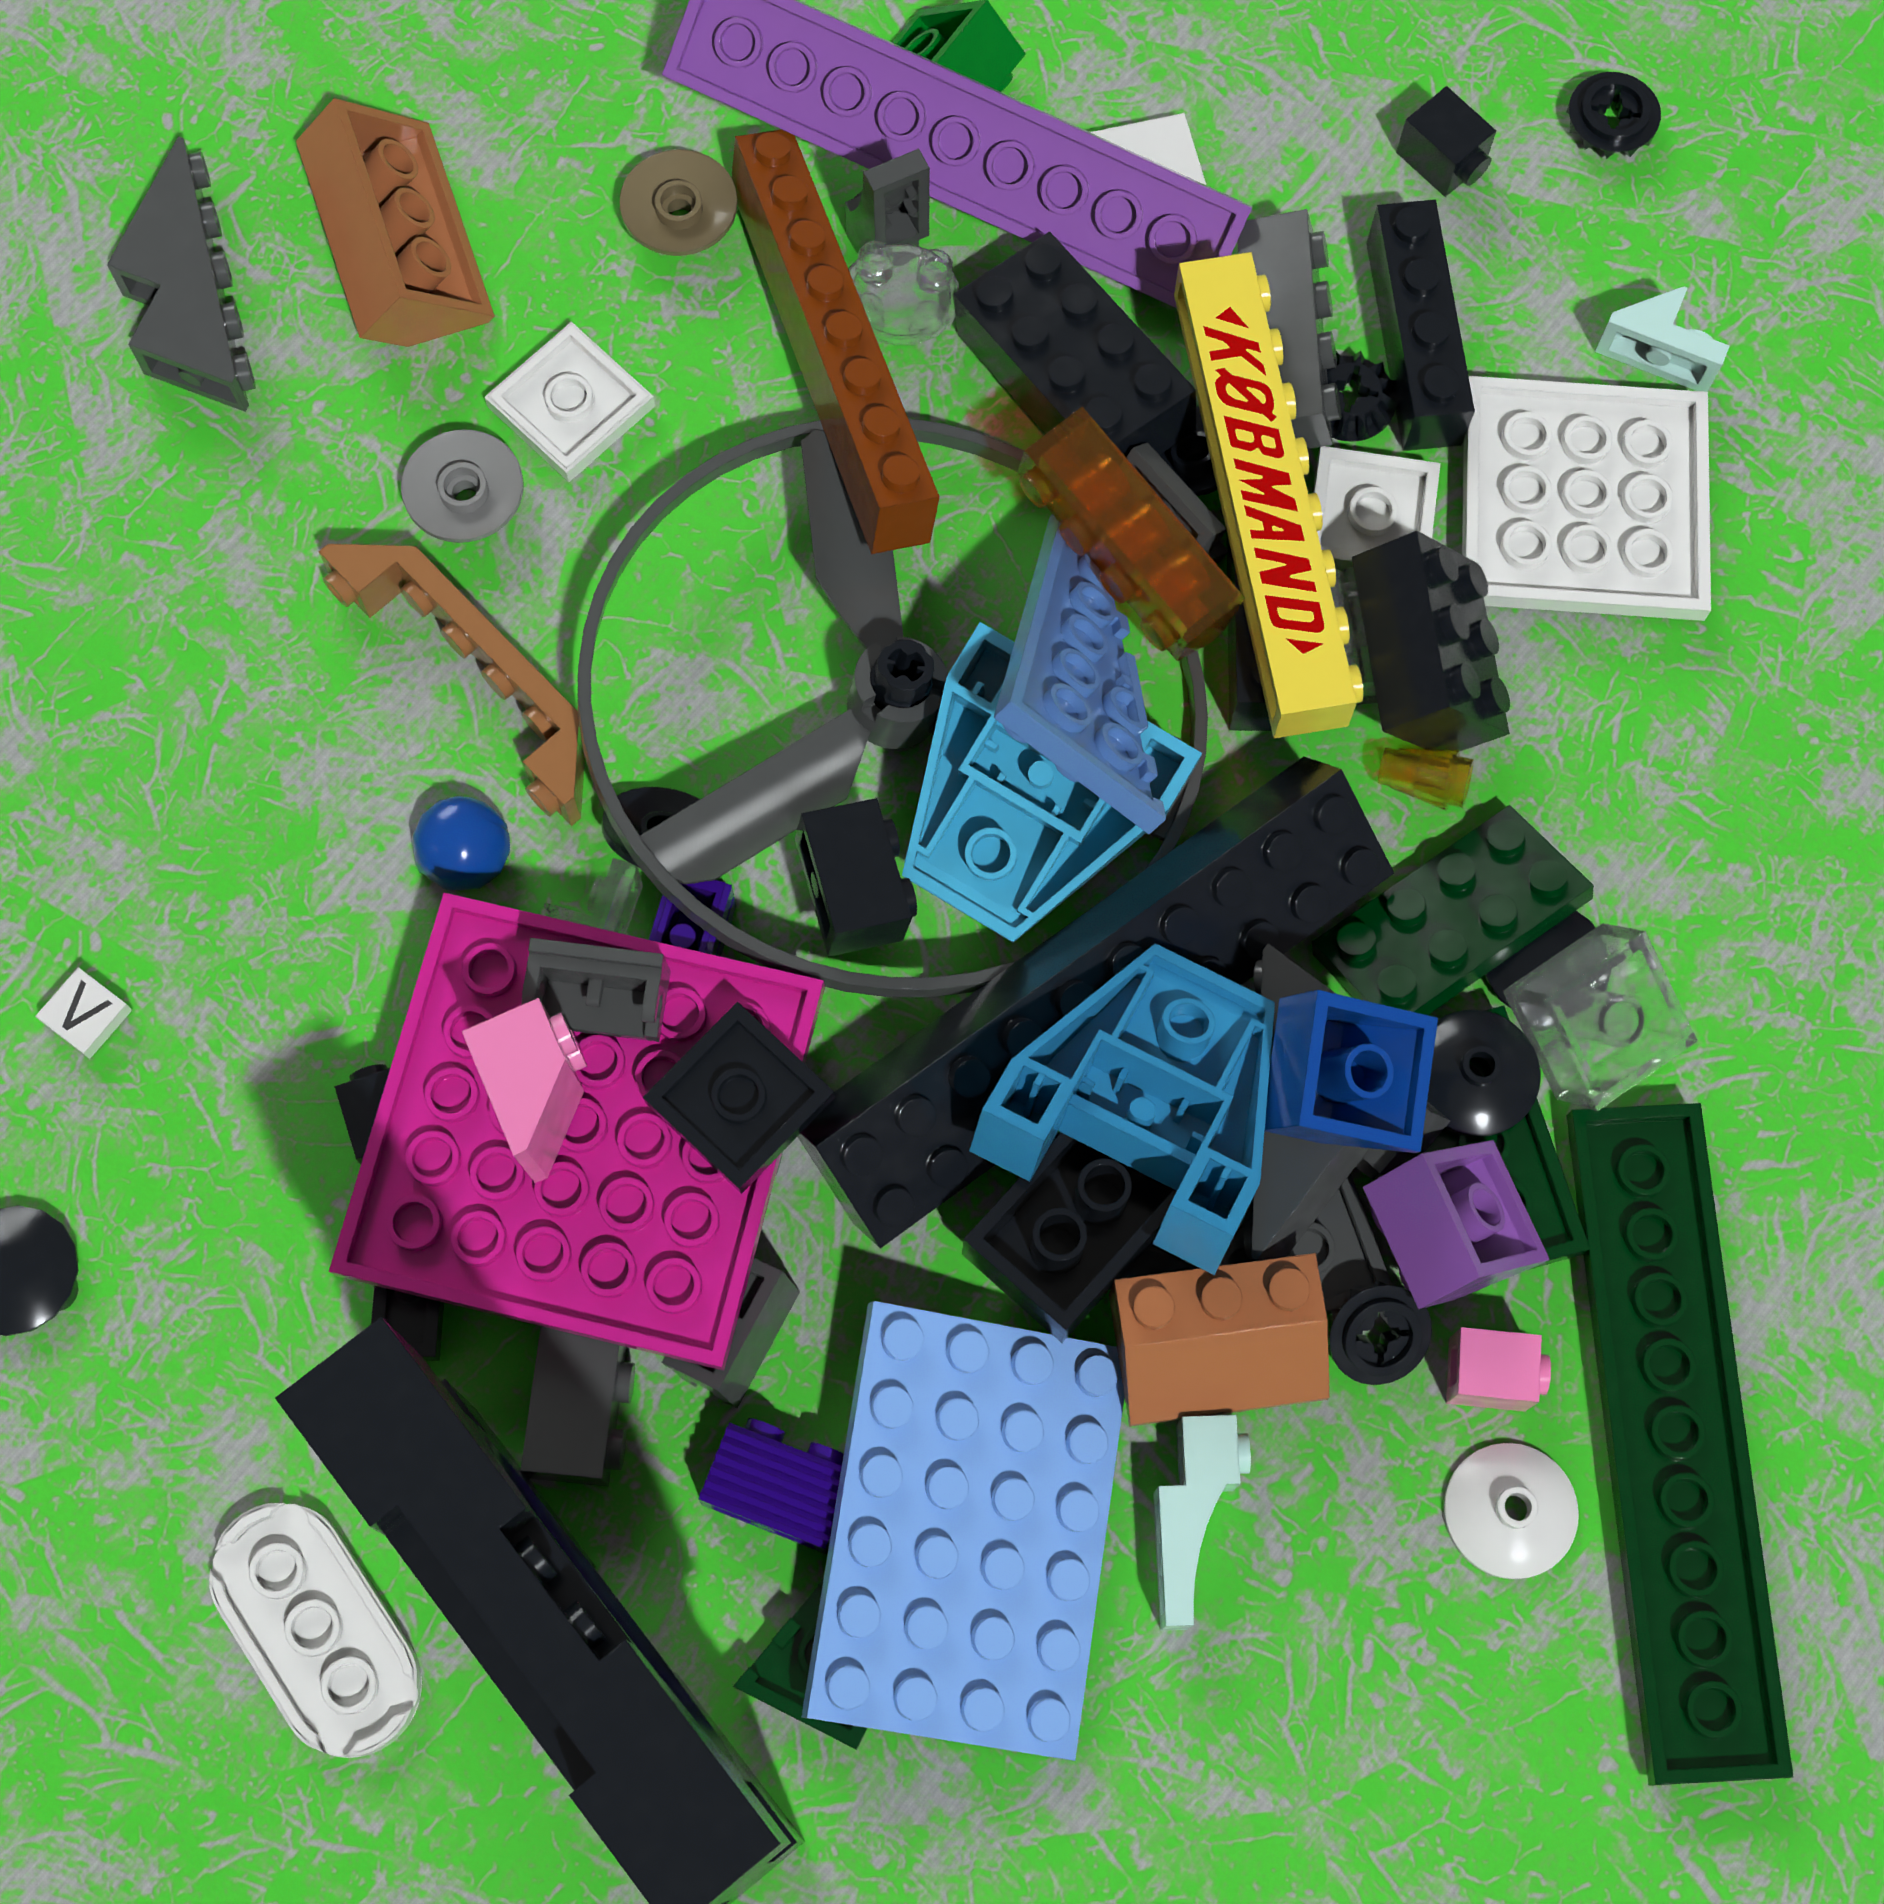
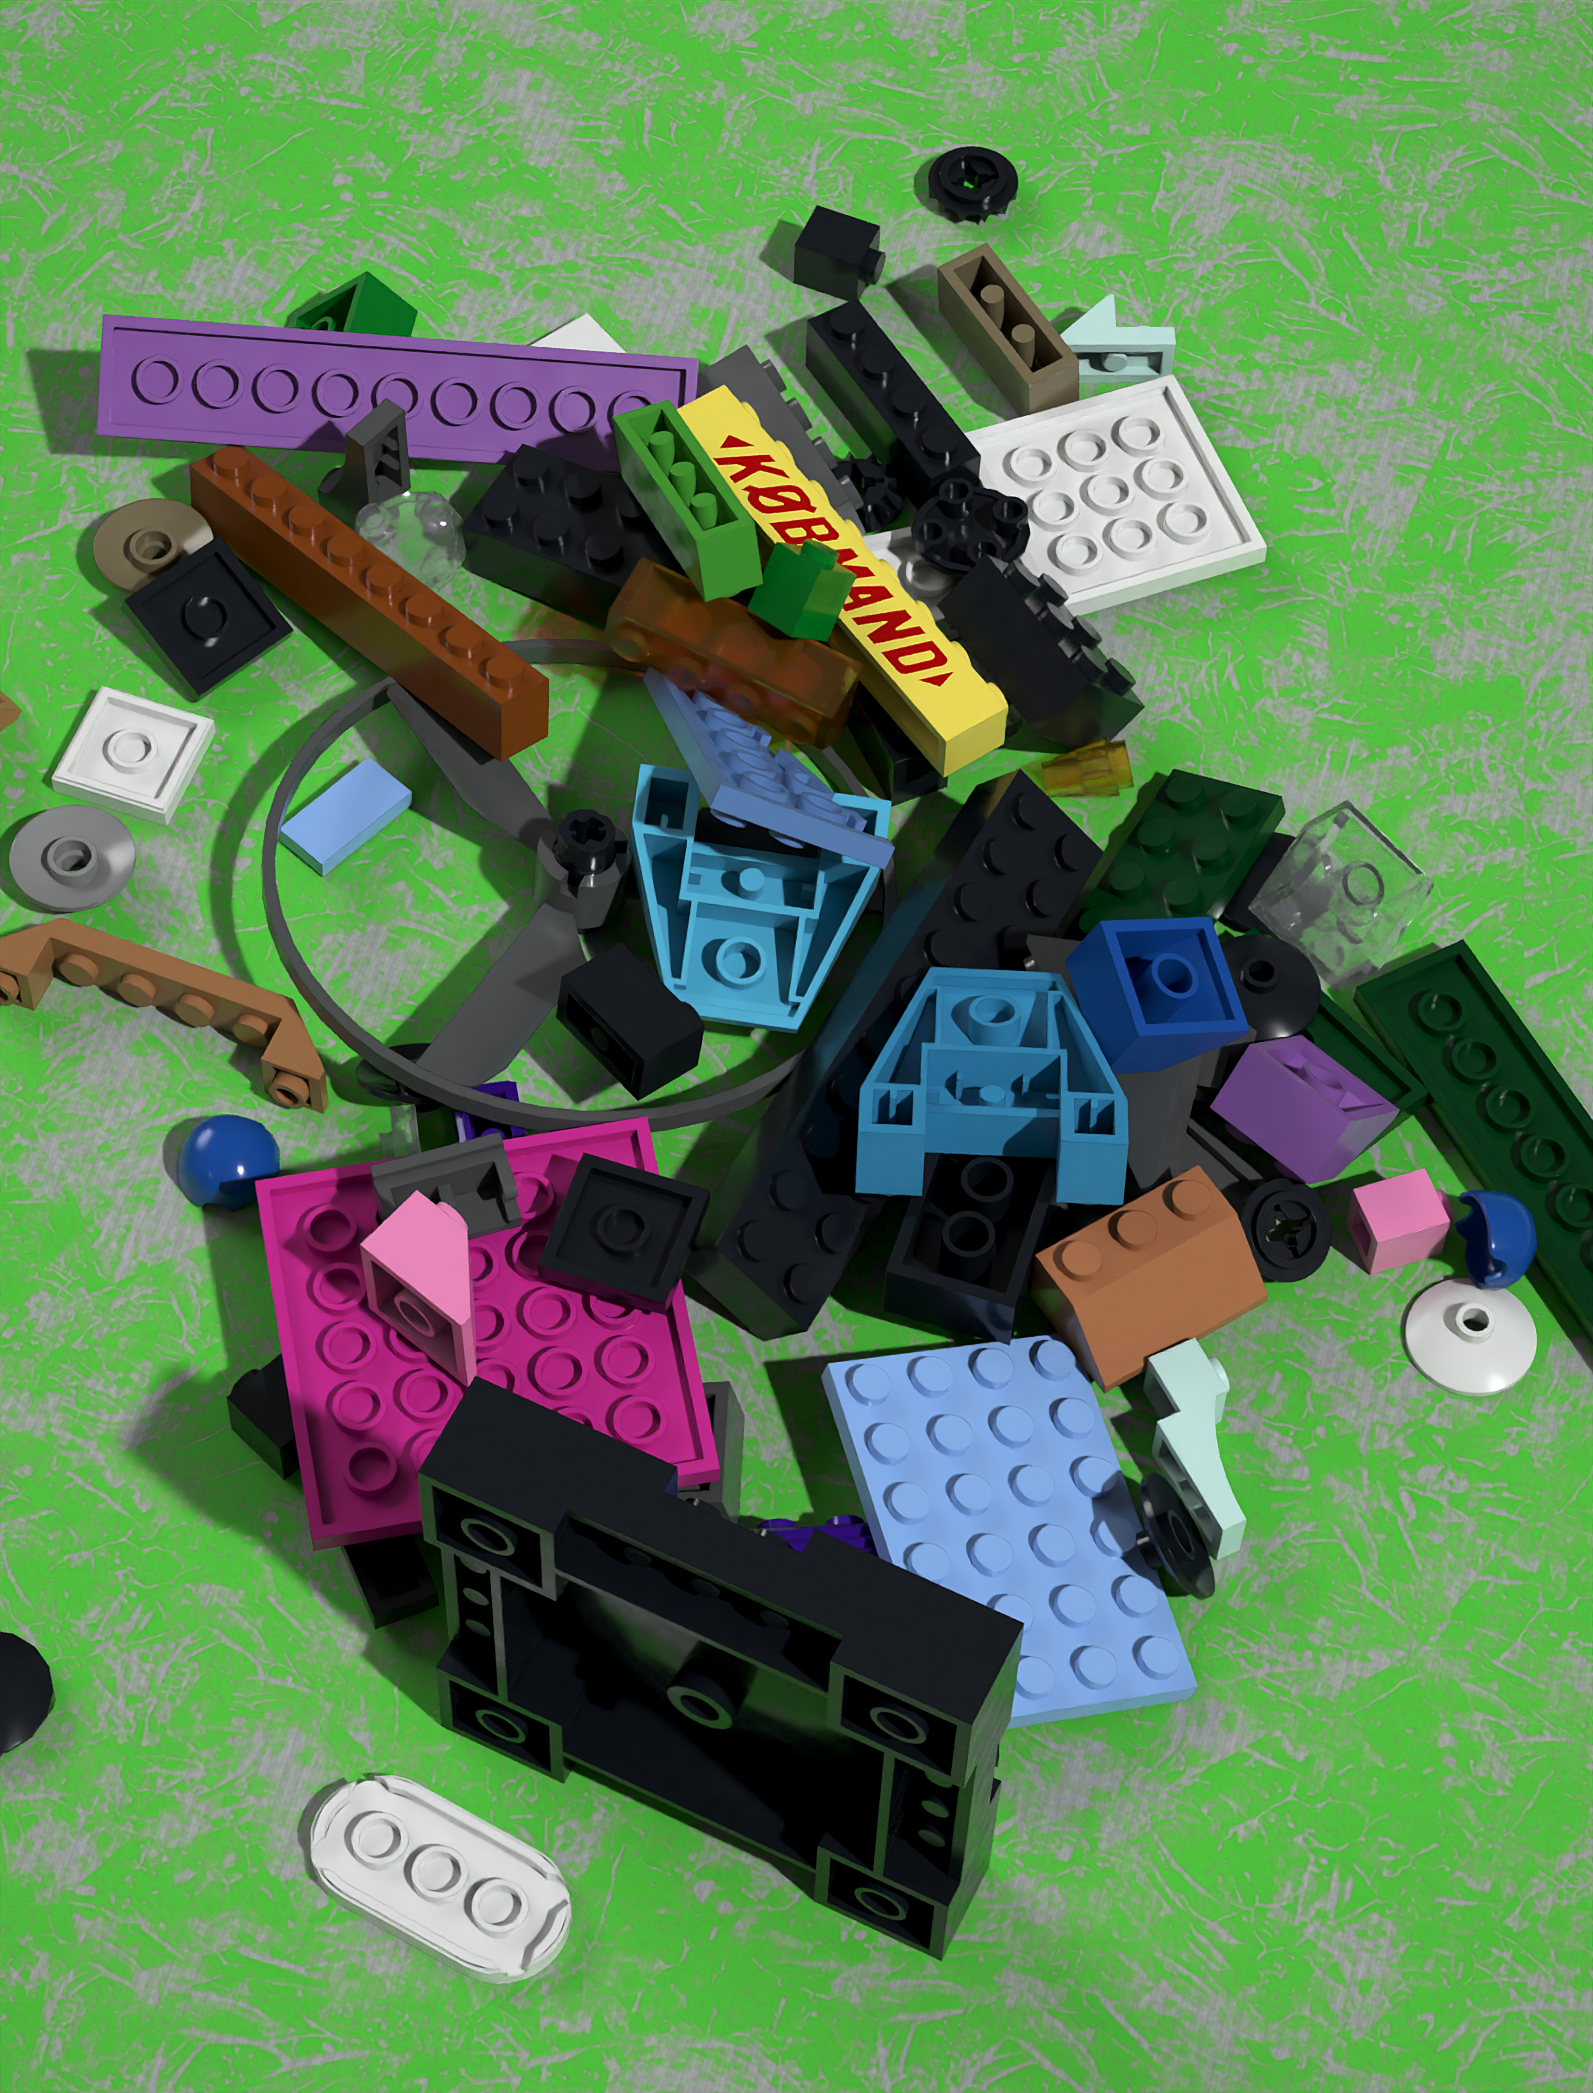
camera: 25 degrees left, 15 degrees down
(689, 294) = (206, 619): none -> black plate
(726, 539) = (345, 816): none -> light blue tile
(1121, 1610) = (1173, 1538): none -> black dish
(1150, 367) = (688, 500): none -> bright green brick
(1215, 504) = (802, 590): none -> green brick
(1429, 483) = (967, 524): none -> black dish
(1566, 288) = (1007, 332): none -> dark tan brick
(1580, 1435) = (1498, 1238): none -> blue hair

